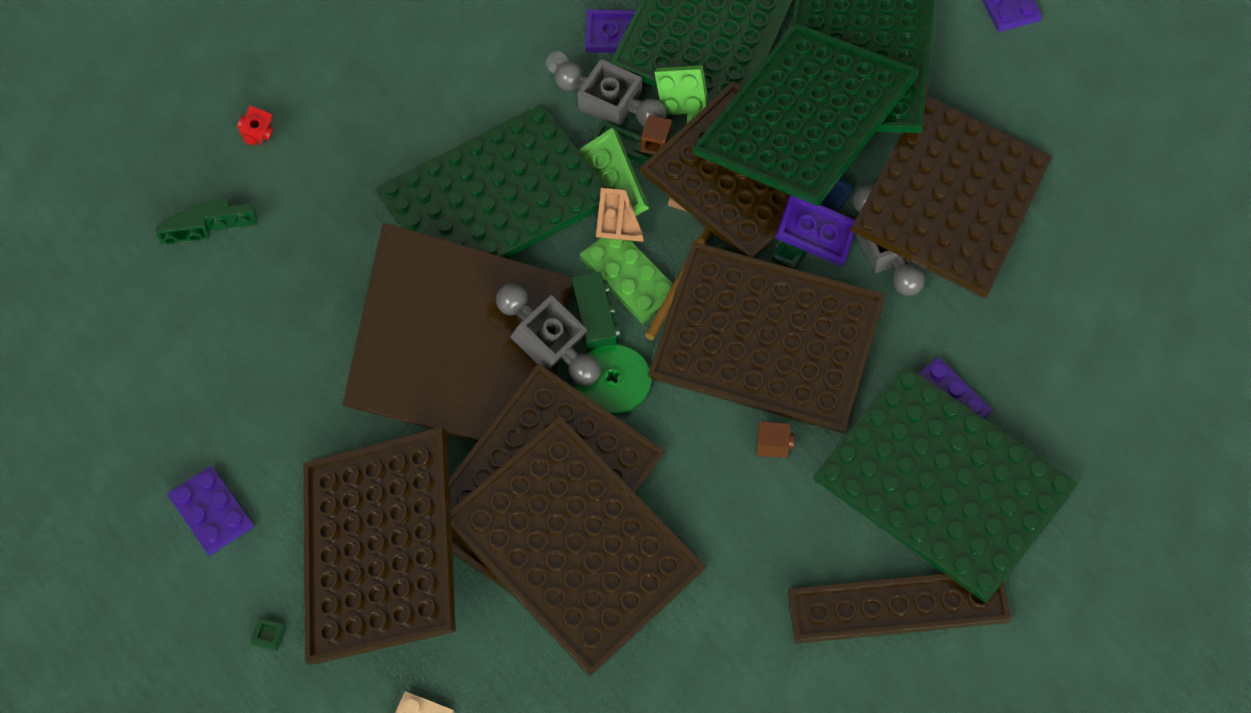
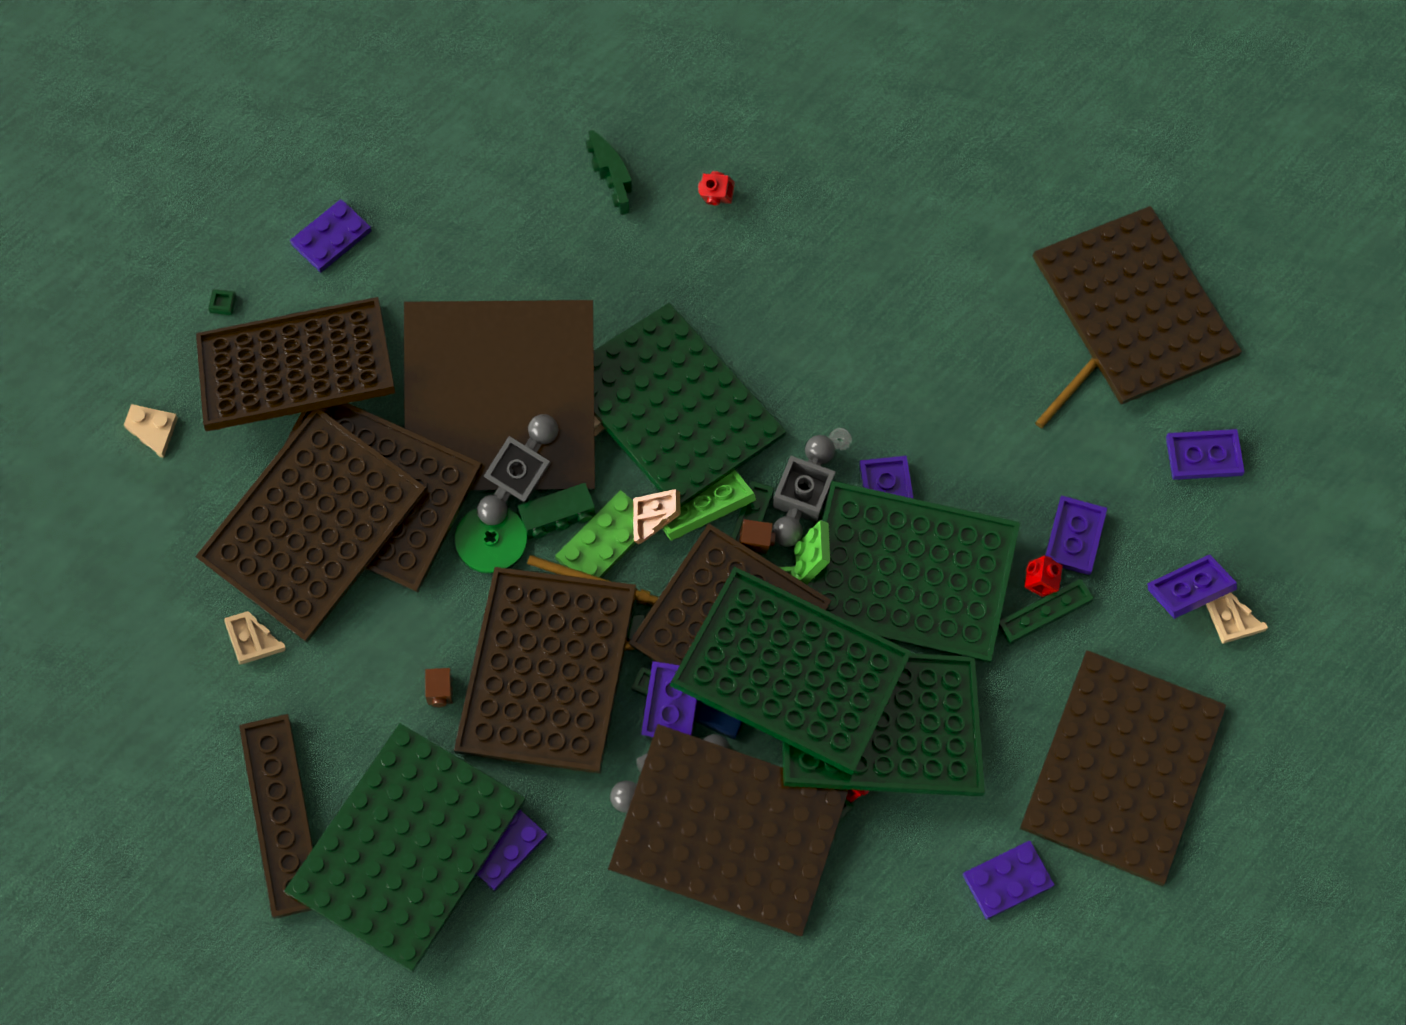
camera: 80 degrees right, 5 degrees up
(694, 625) = (250, 638): none -> tan wing

